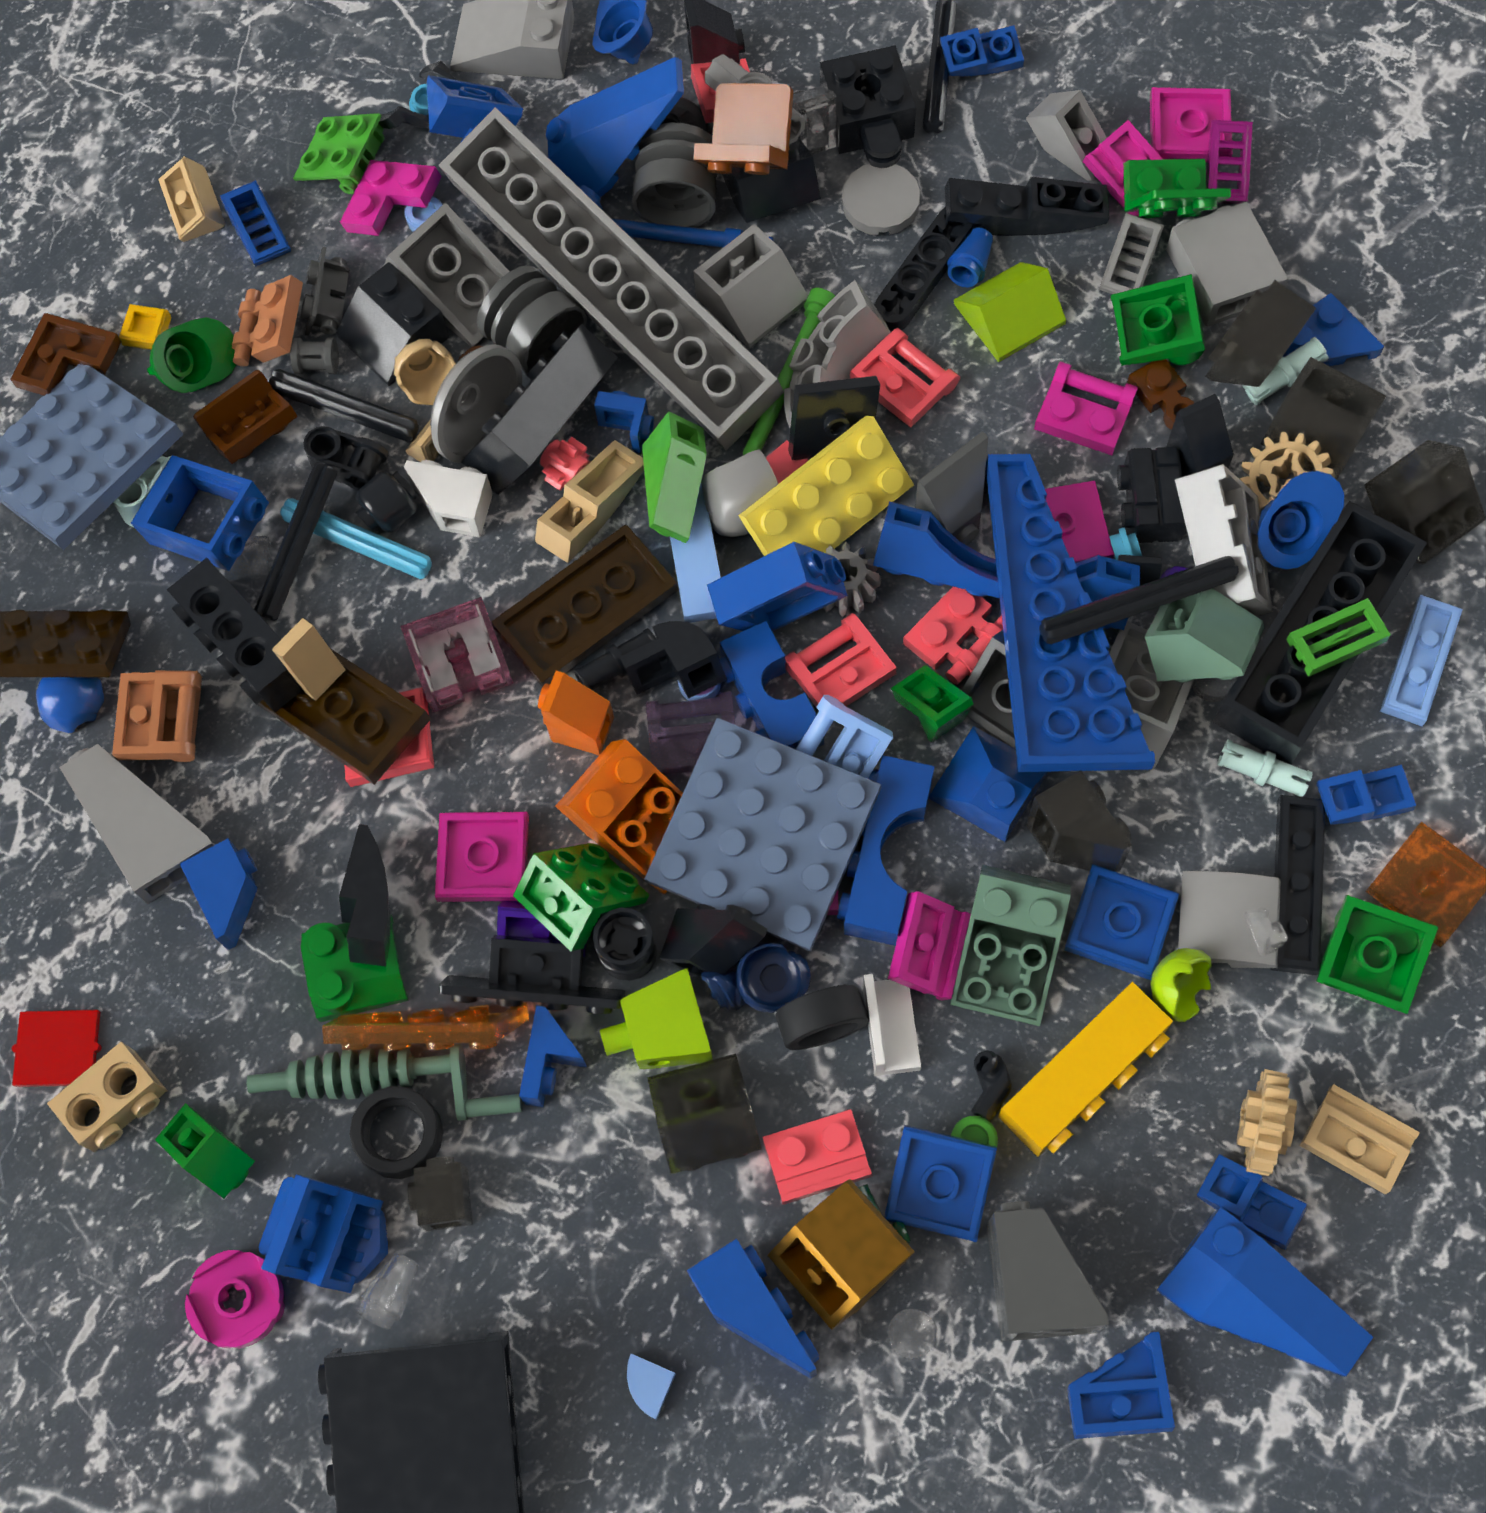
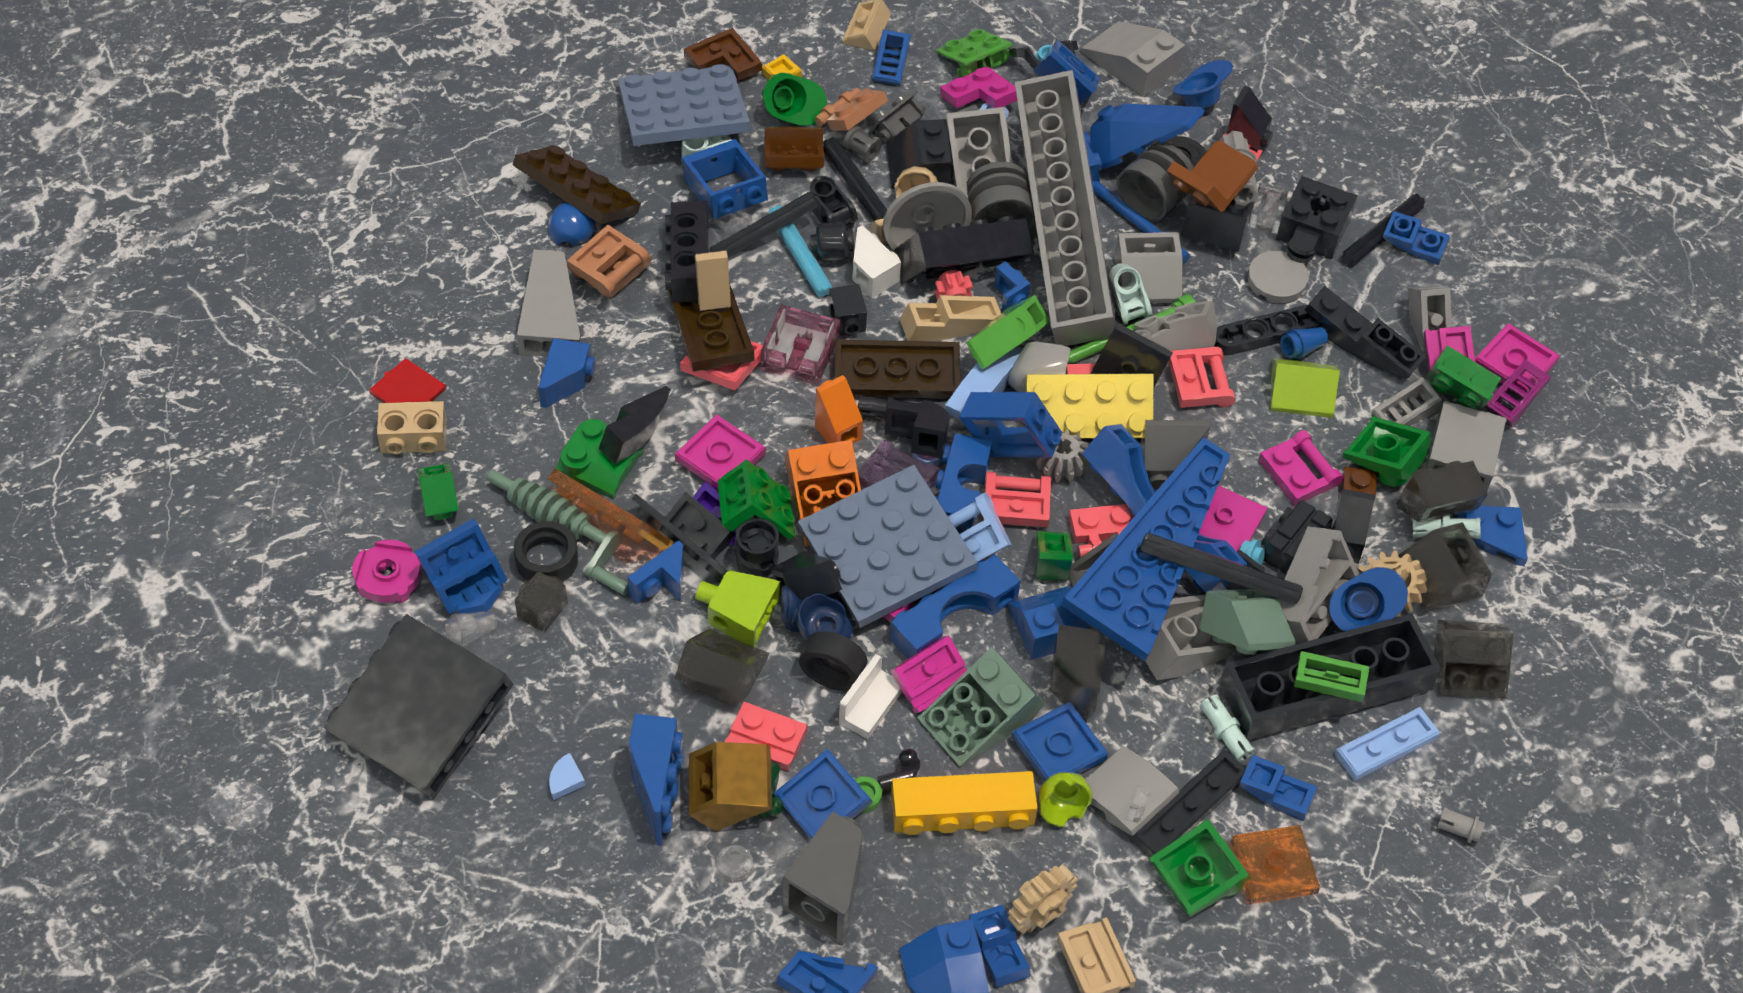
camera: 30 degrees right, 15 degrees down
(473, 573) = (849, 307): none -> black brick
(762, 333) = (1131, 299): none -> light aqua piece

